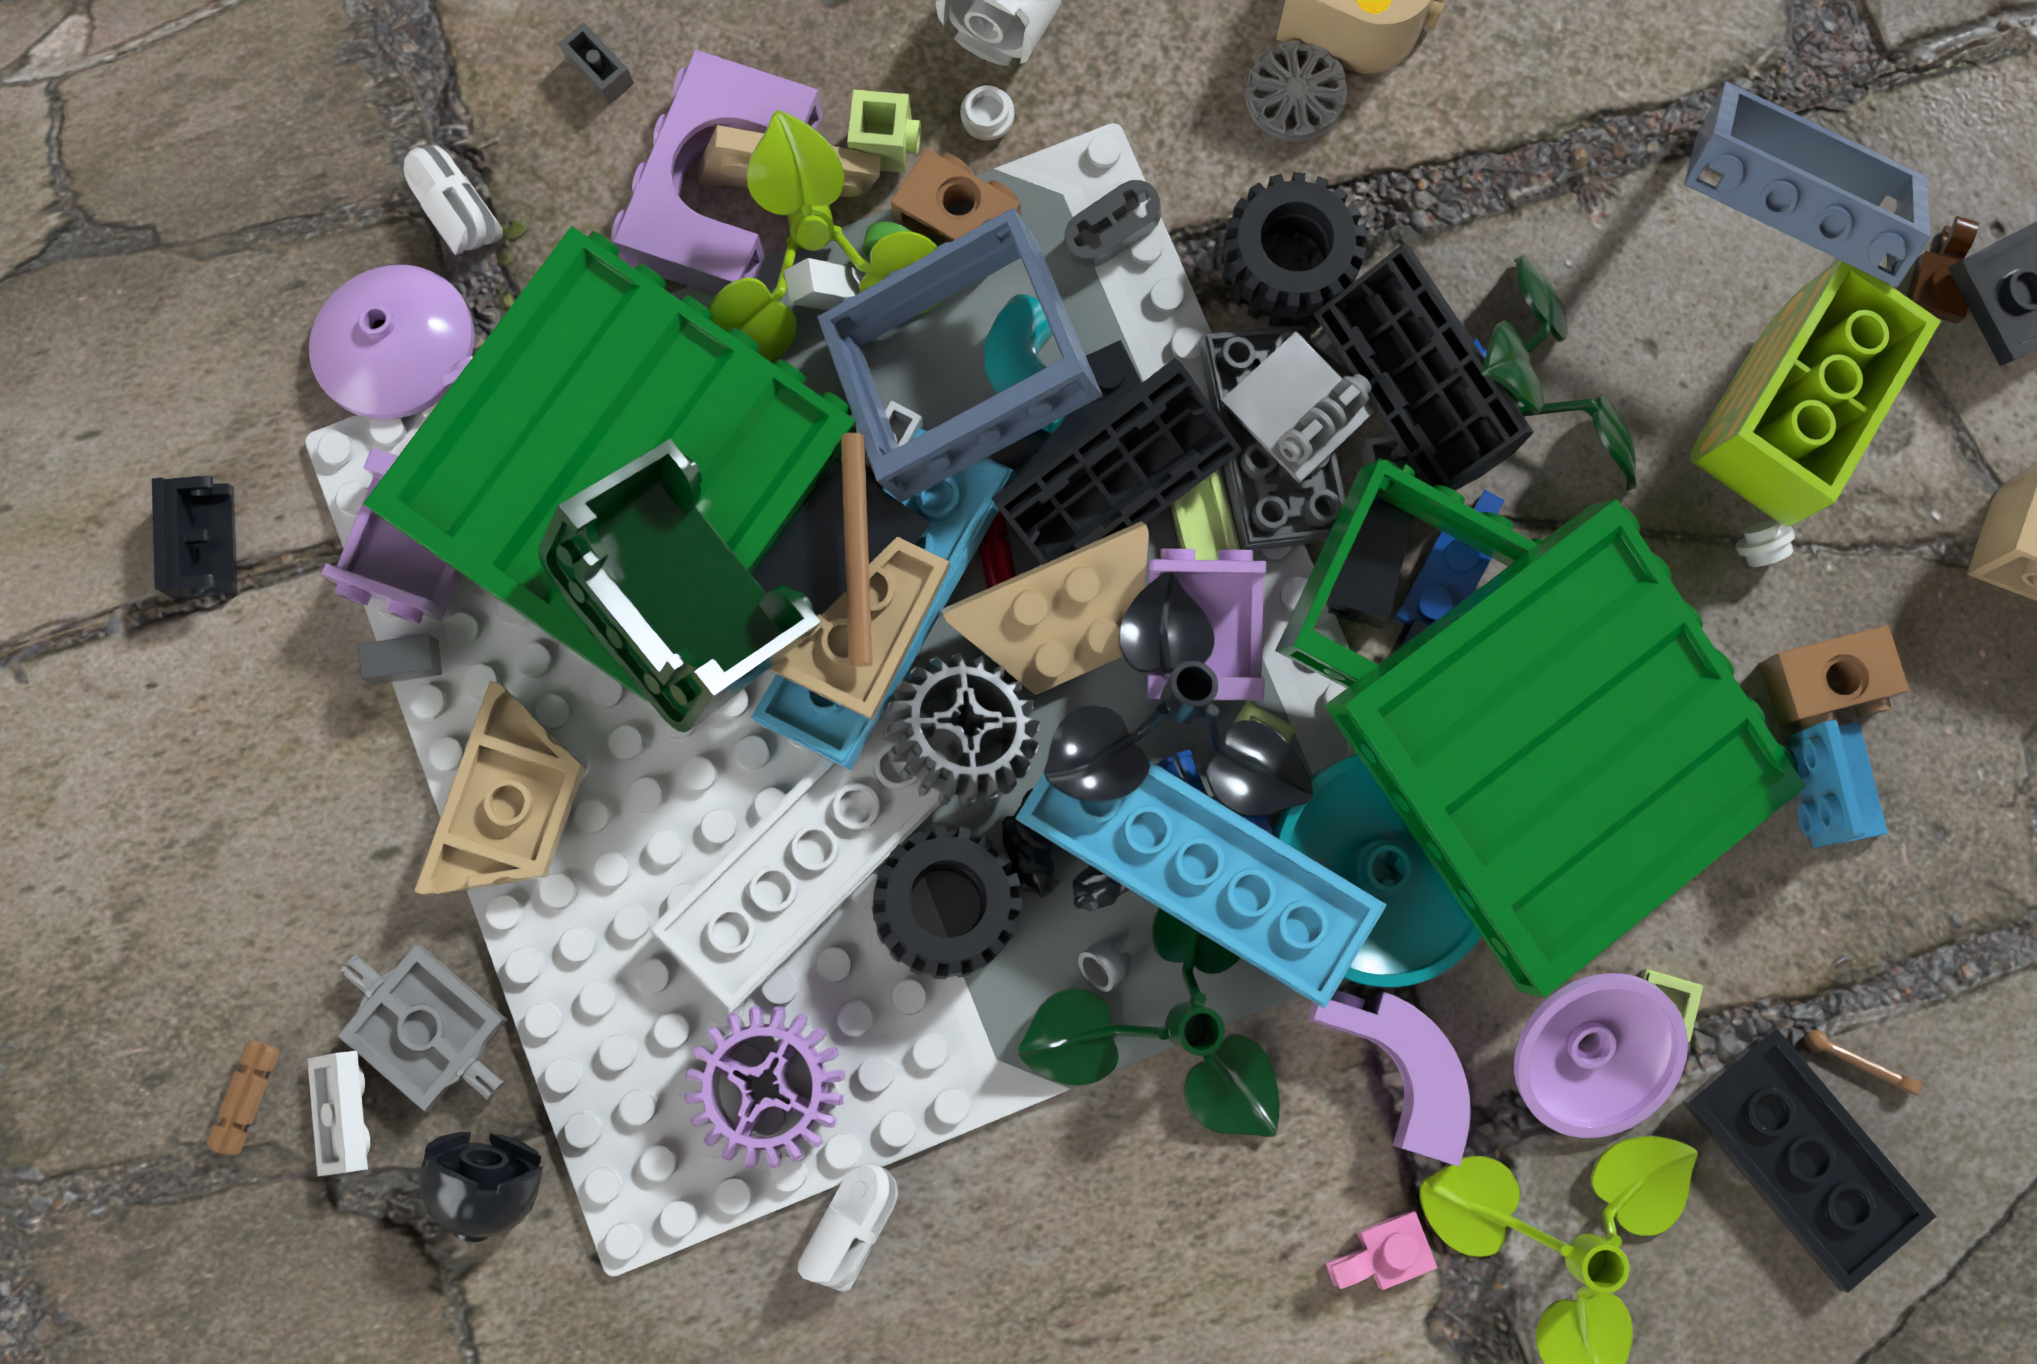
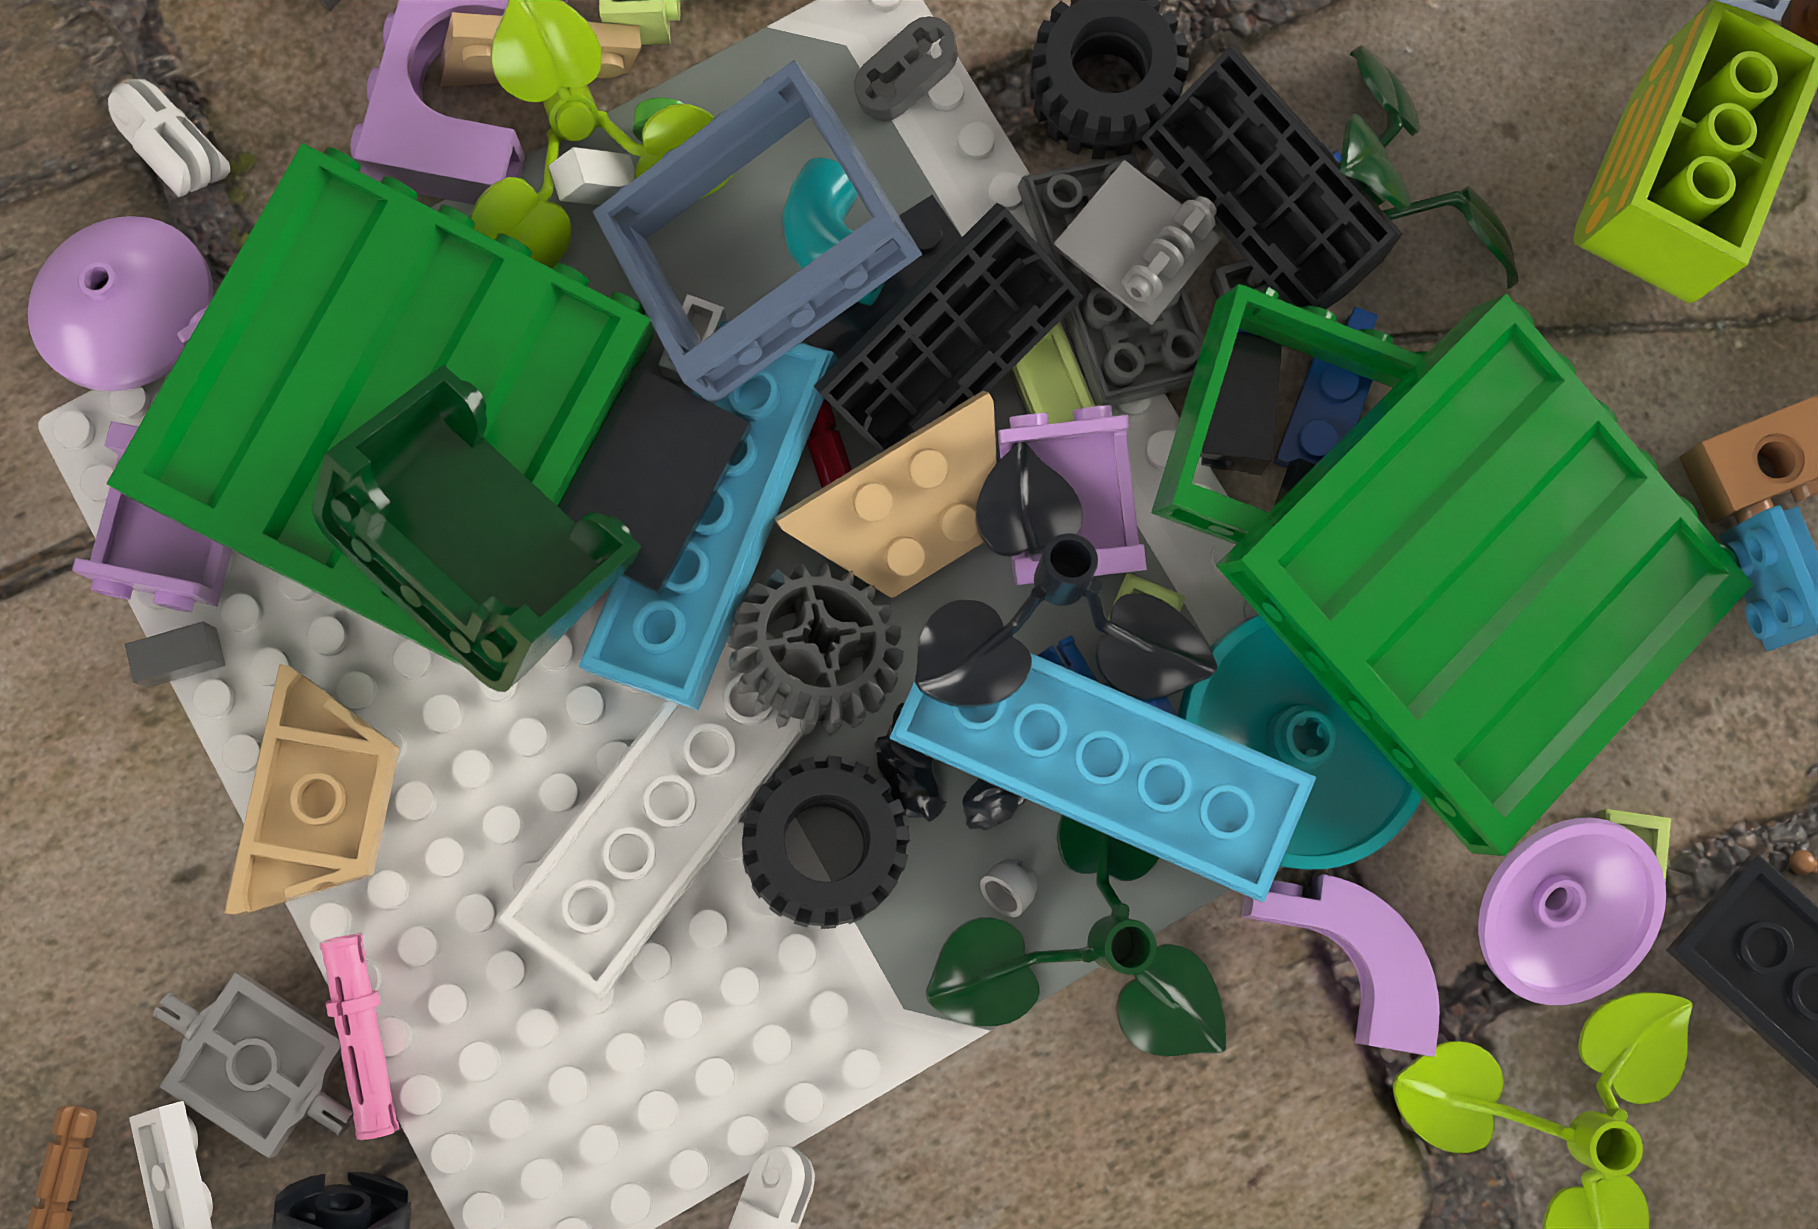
camera: 10 degrees left, 0 degrees up
(517, 1023) = (359, 1036): none -> bright pink pin
(750, 1113) = (662, 1044): lavender gear -> none
(856, 550) = (671, 463): medium nougat bar -> none
(901, 593) = (695, 550): tan wing -> none
(935, 185) = (709, 47): medium nougat brick -> none
(1391, 1252) = (1371, 1162): bright pink plate -> none
(1766, 543) = (1668, 325): white plate -> none

